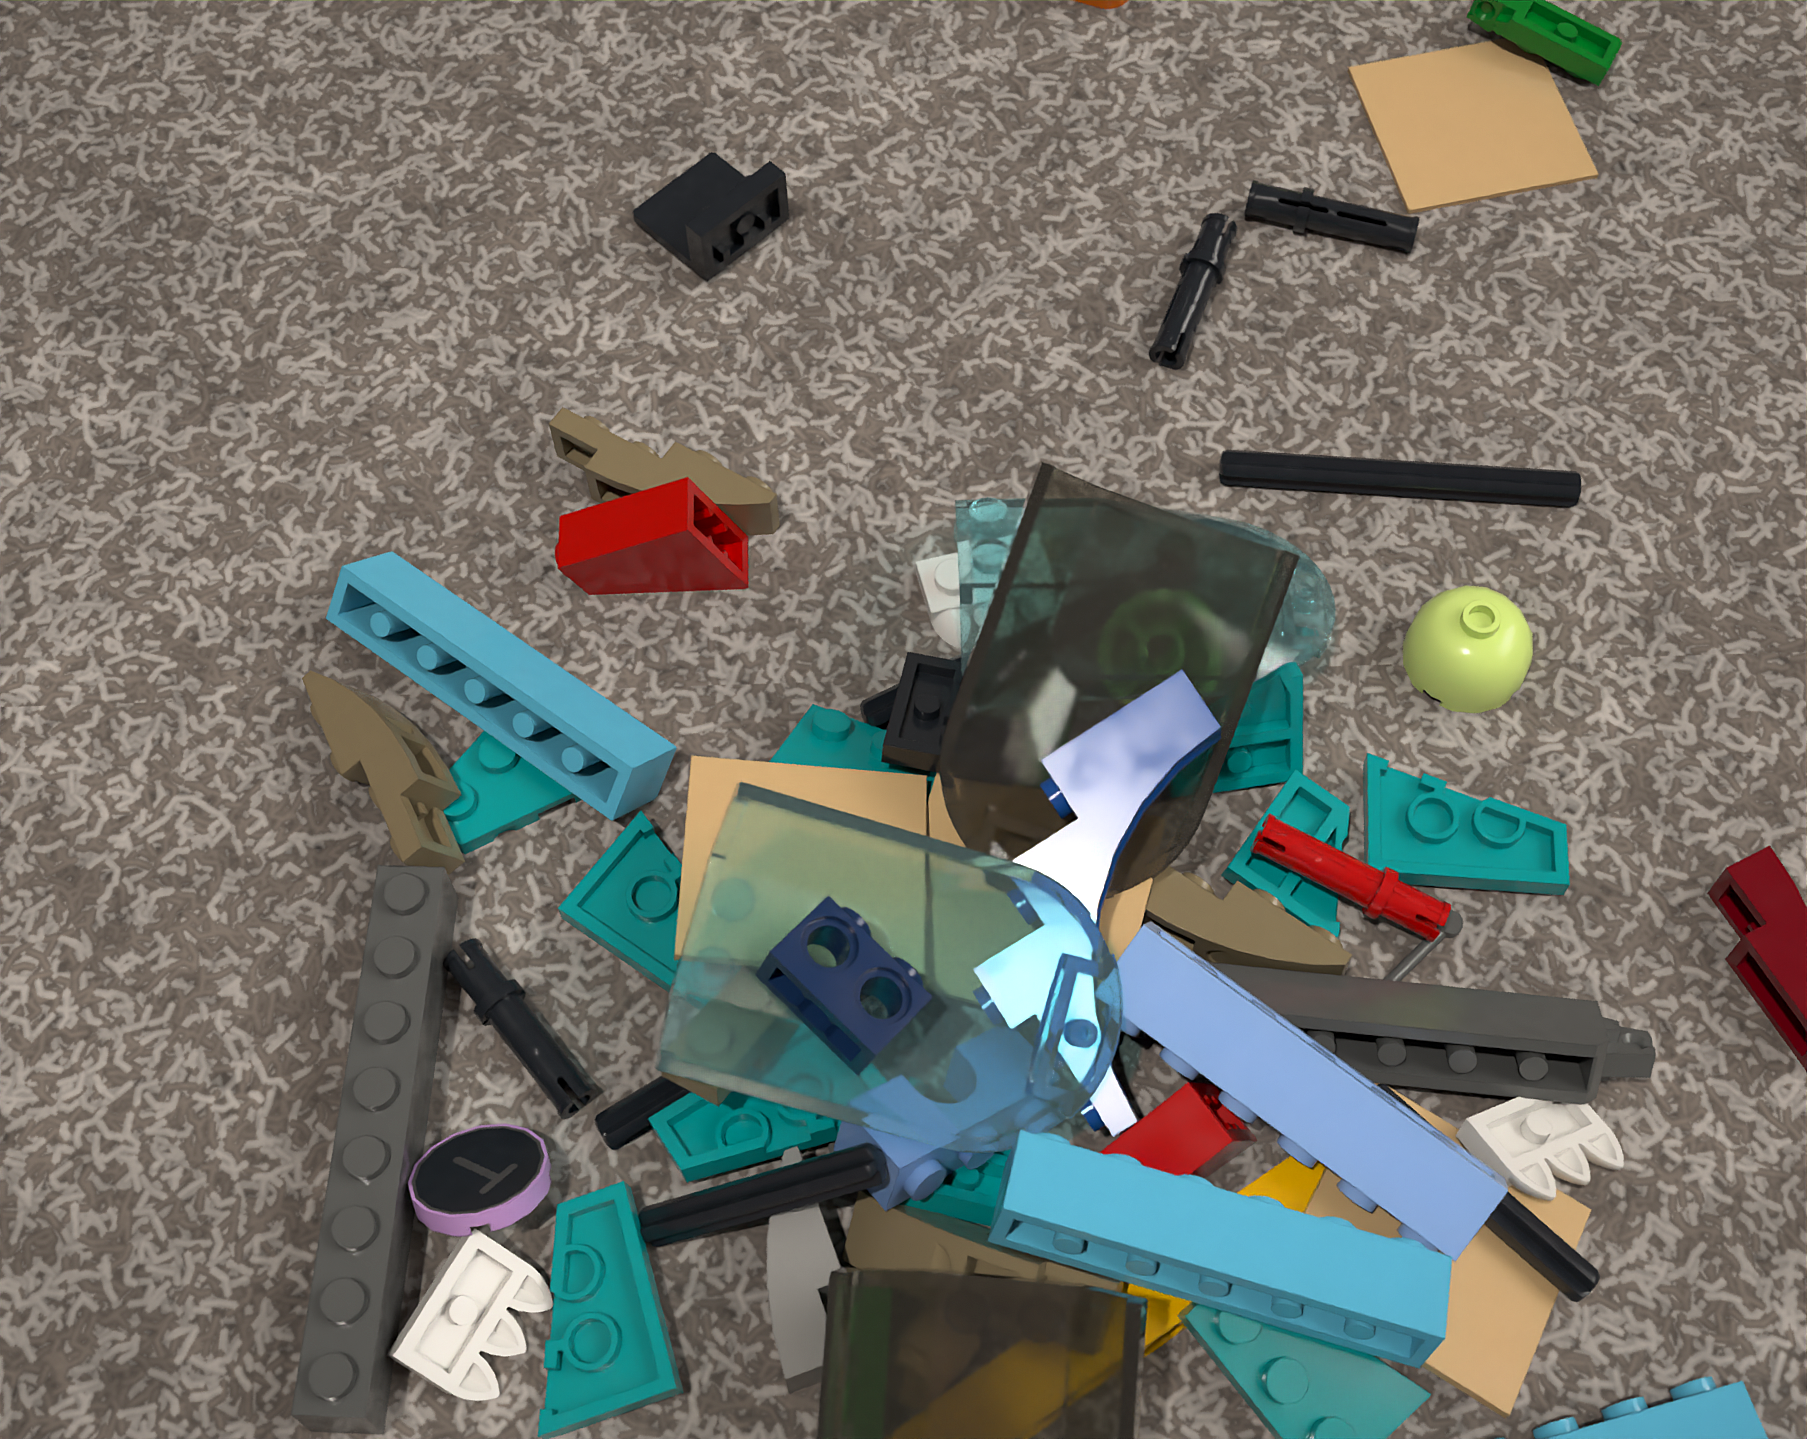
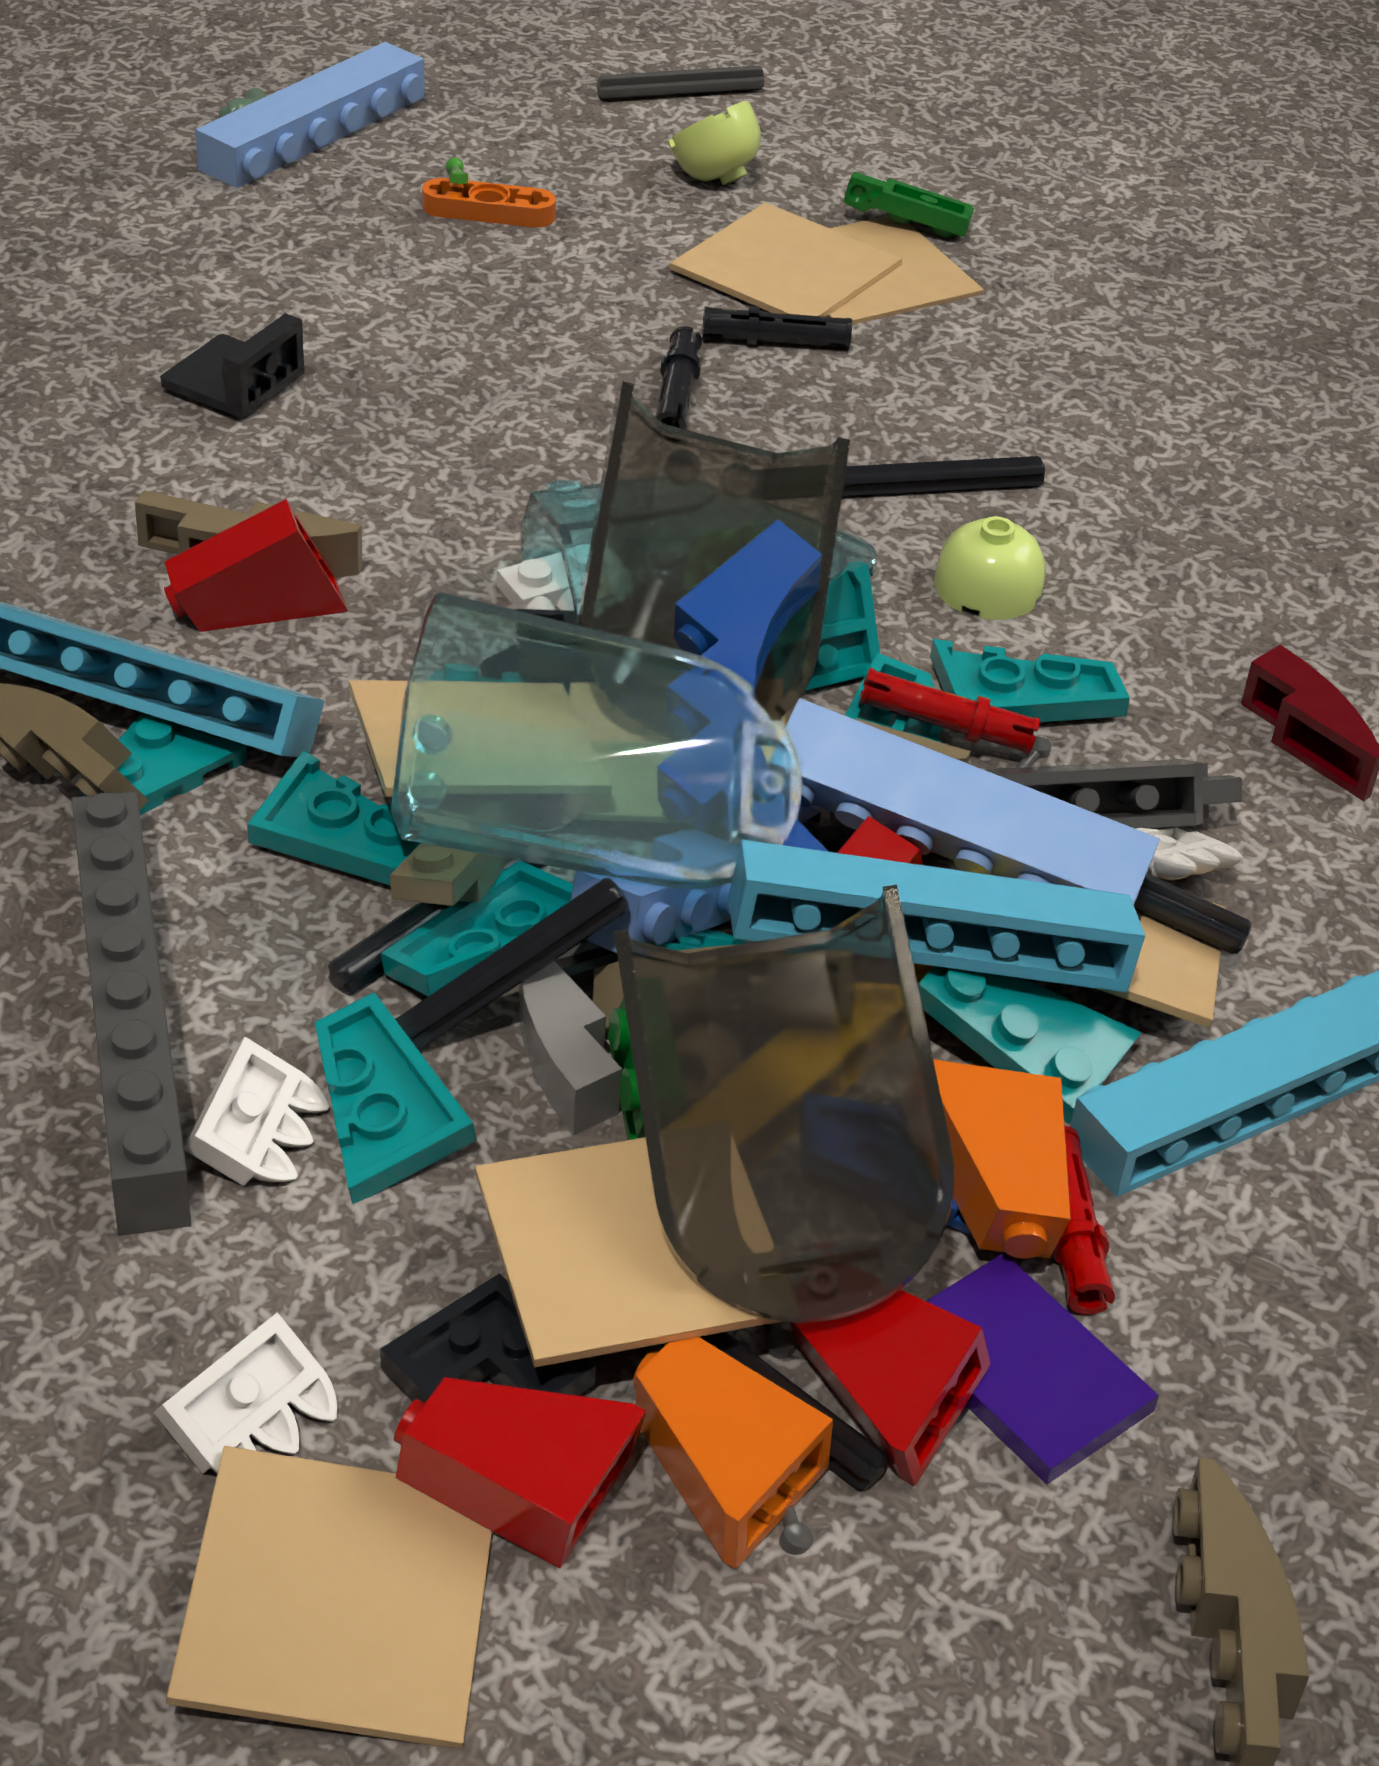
camera: 20 degrees left, 20 degrees down
(480, 1179) = (229, 1011): tile -> none
(503, 1006) = (215, 903): black pin -> none
(830, 996) = (552, 767): dark blue brick -> none
(1374, 107) = (786, 263): none -> tan piece

